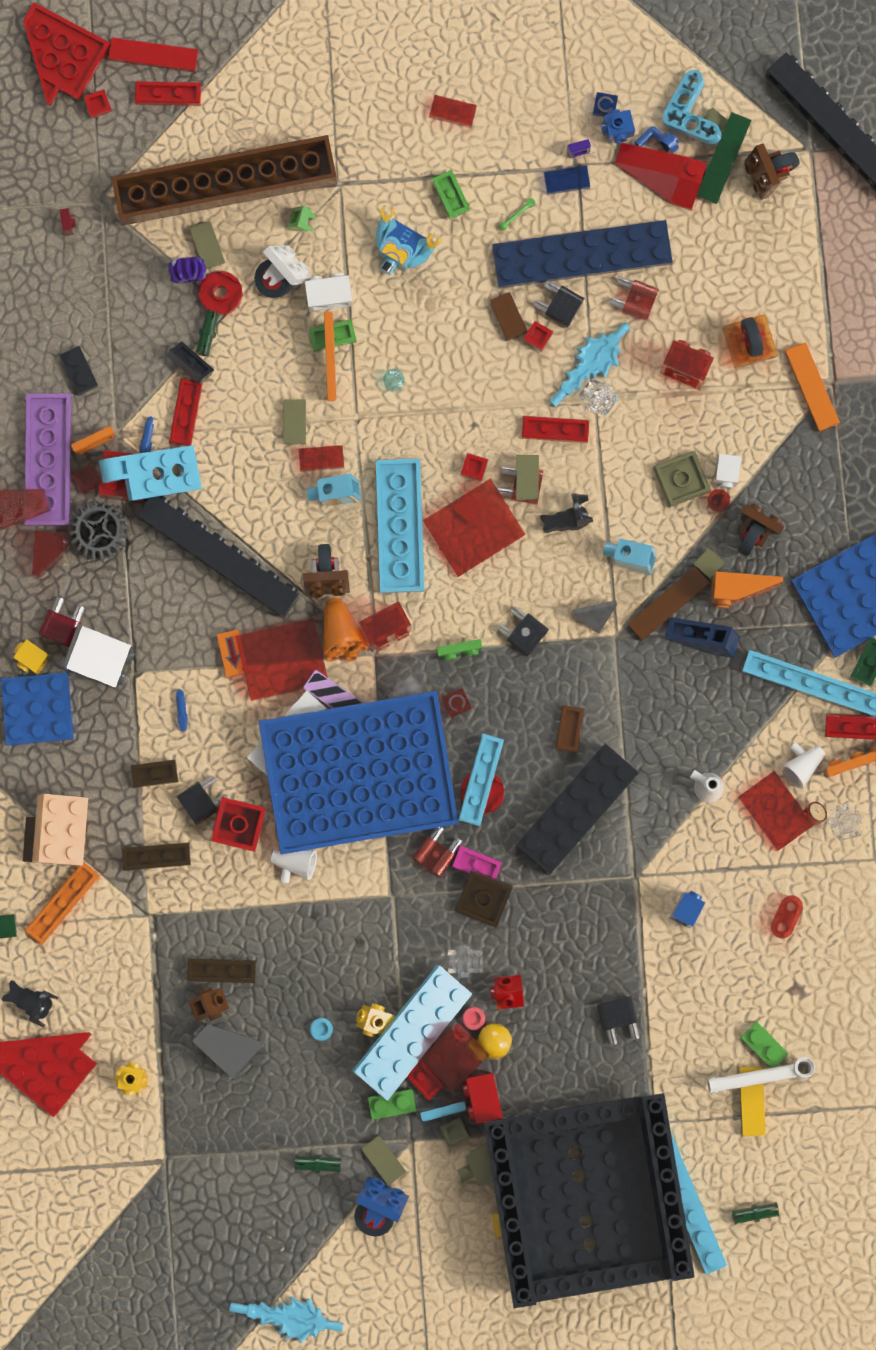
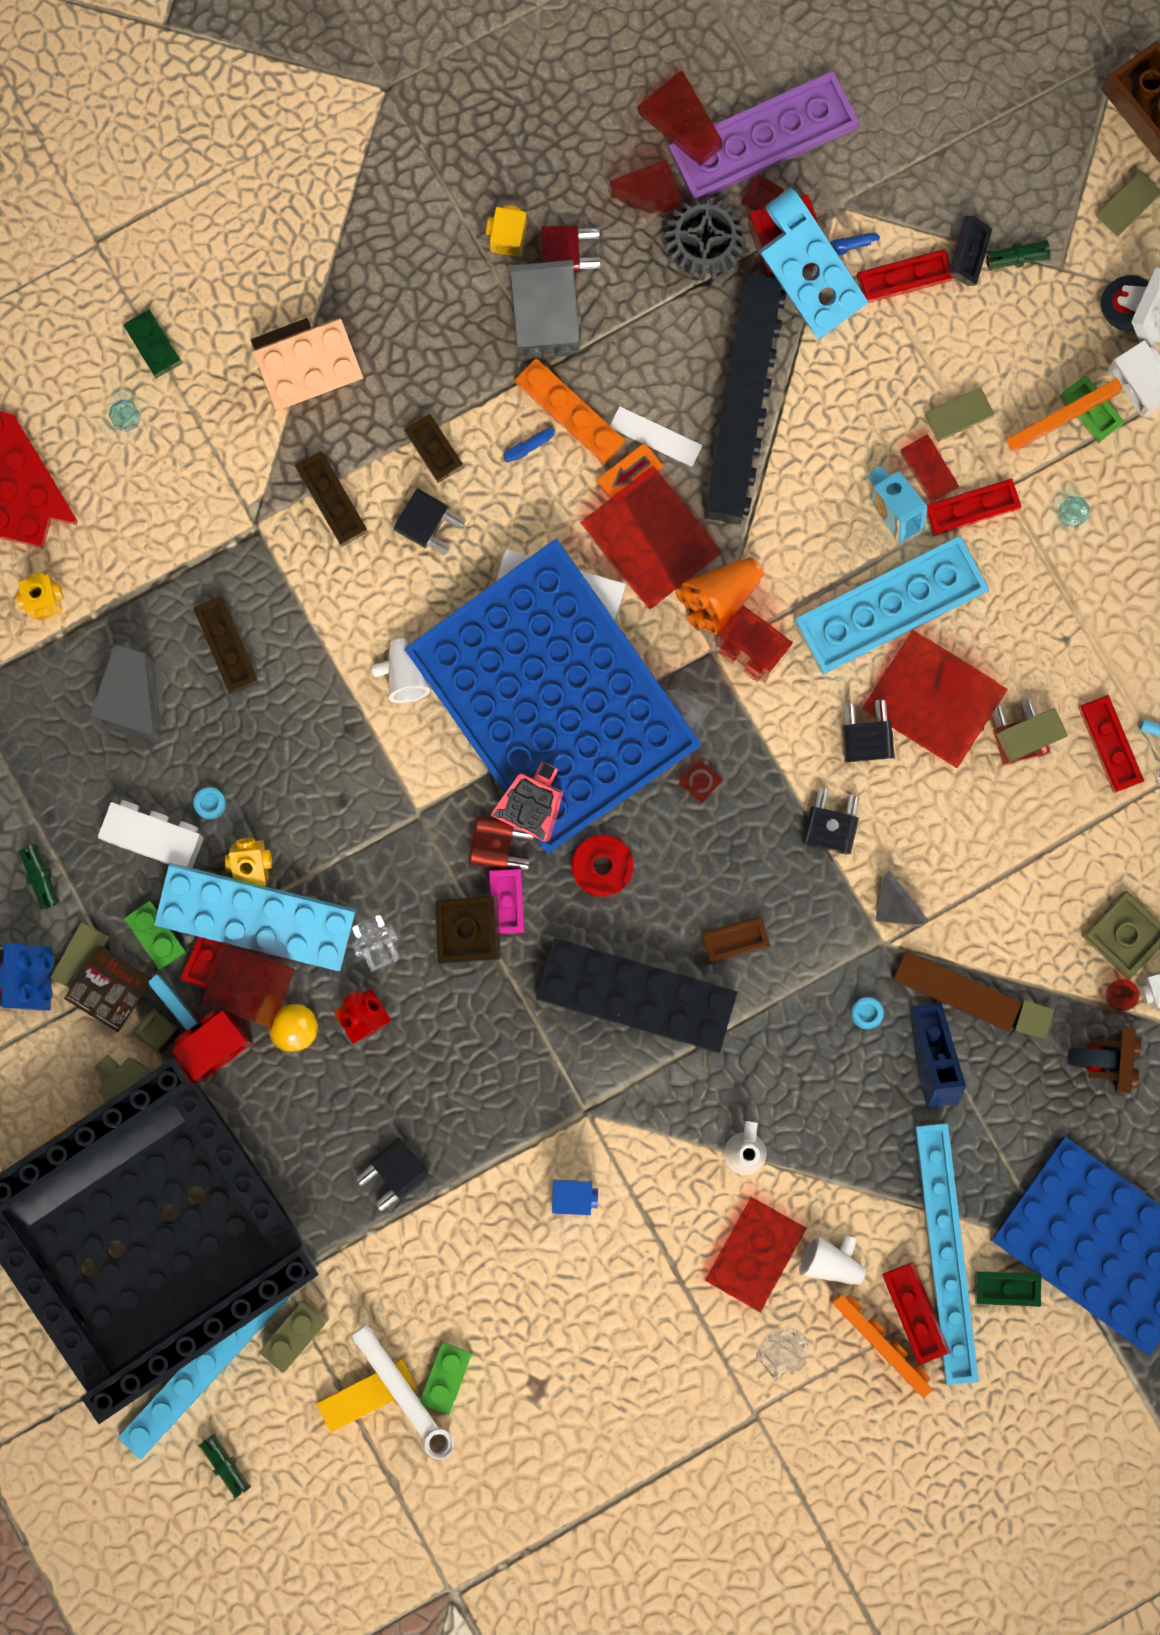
camera: 65 degrees right, 0 degrees up
(34, 968) = (124, 415): none -> clear light blue tile
(35, 1004) = (81, 437): black hair -> none
(37, 709) = (447, 270): blue plate -> none
(62, 903) = (221, 412): orange tile -> none
(68, 221) = (1072, 20): dark red plate -> none
(79, 370) = (893, 122): black plate -> none
(93, 440) = (814, 180): orange tile -> none
(171, 673) = (570, 411): none -> orange plate
(187, 270) = (1085, 190): dark purple gear -> none
(212, 1001) = (175, 647): reddish brown brick -> none
(214, 625) = (655, 436): none -> white sticker
(217, 280) = (1073, 265): red tile -> none
(237, 824) = (416, 577): red brick -> none
(325, 1077) = (150, 834): none -> white brick
(326, 580) = (783, 540): reddish brown plate -> none
(329, 691) = (638, 614): tile -> none
(359, 442) = (972, 507): none -> red tile
(413, 1150) = (108, 988): none -> dark brown tile
(422, 818) = (532, 803): none -> torso
(468, 648) = (777, 763): bright green plate -> none
(473, 1018) = (310, 988): coral tile -> none
(474, 467) = (1012, 663): red plate -> none
(480, 583) = (869, 739): none -> black piece
(481, 780) = (616, 856): medium azure tile -> none
(571, 519) = (1005, 817): black hair -> none
(640, 559) = (1001, 926): medium azure torso -> none
(655, 667) = (867, 1013): none -> medium azure tile
(693, 1130) = (293, 1336): none -> olive brick
(734, 588) = (1020, 1070): orange slope -> none
(787, 917) = (624, 1331): clear red plate -> none
(815, 813) = (776, 1307): tile -> none

